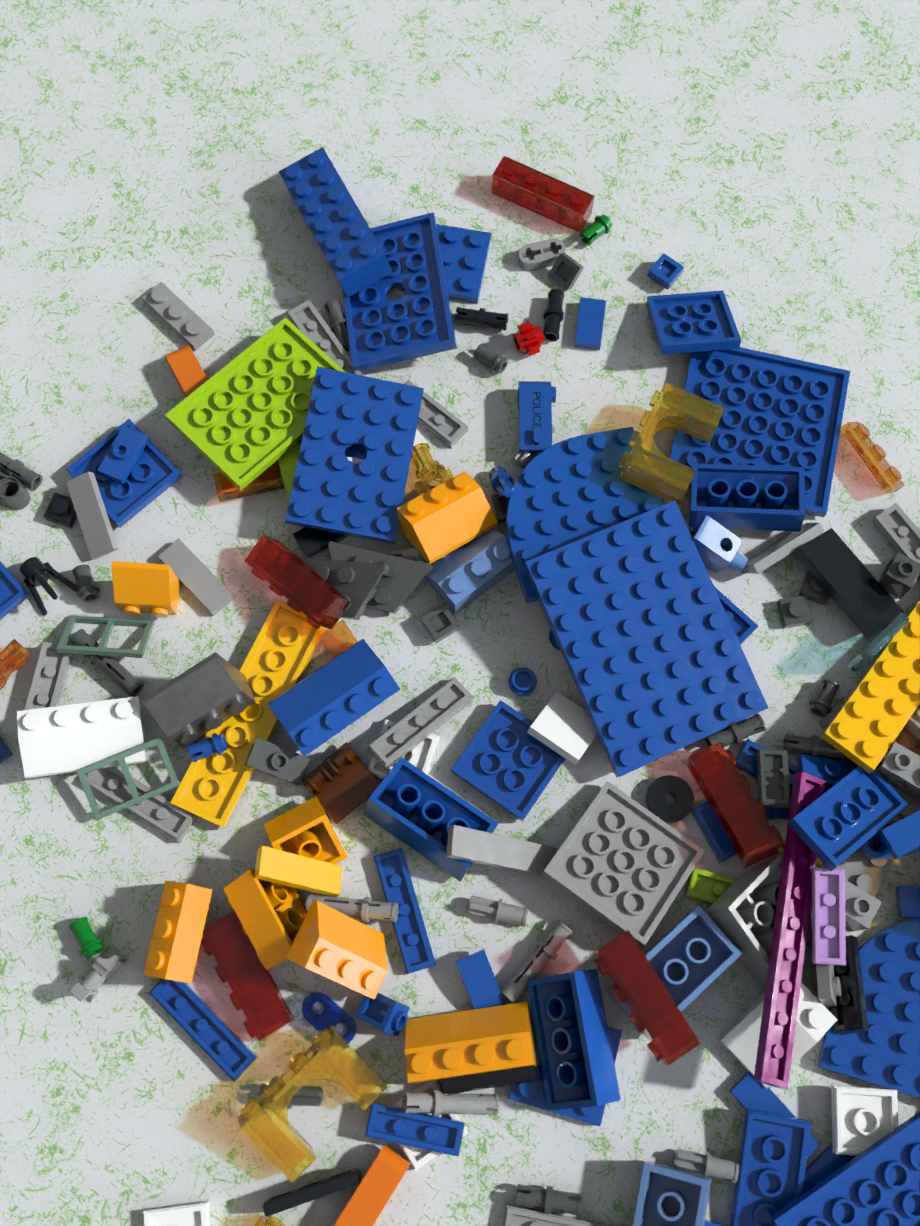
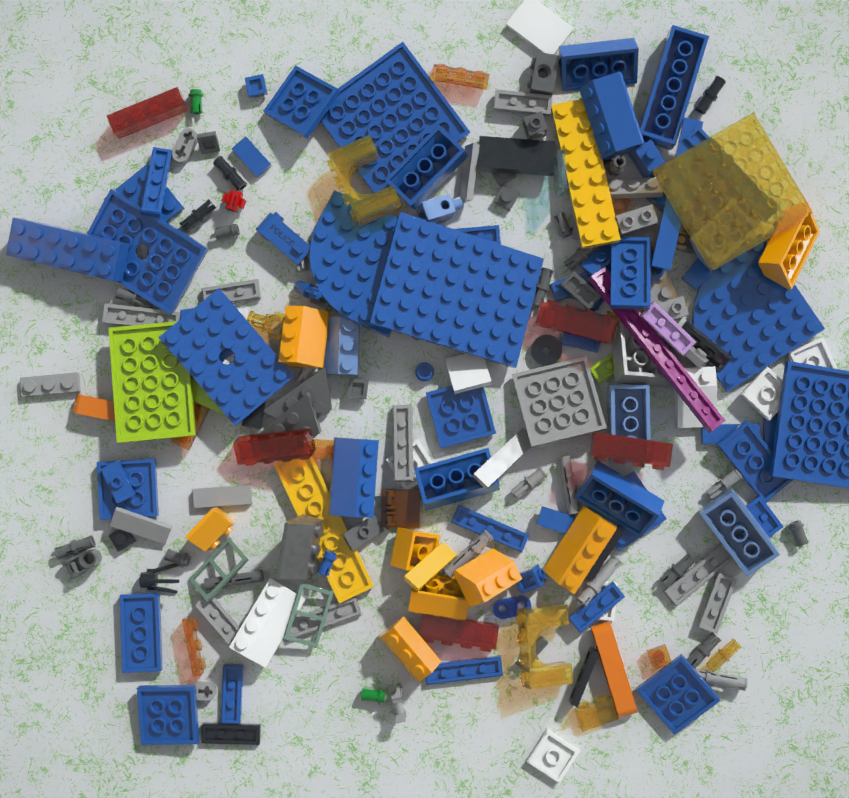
camera: 45 degrees left, 15 degrees up
(478, 251) = (156, 182): none -> blue tile

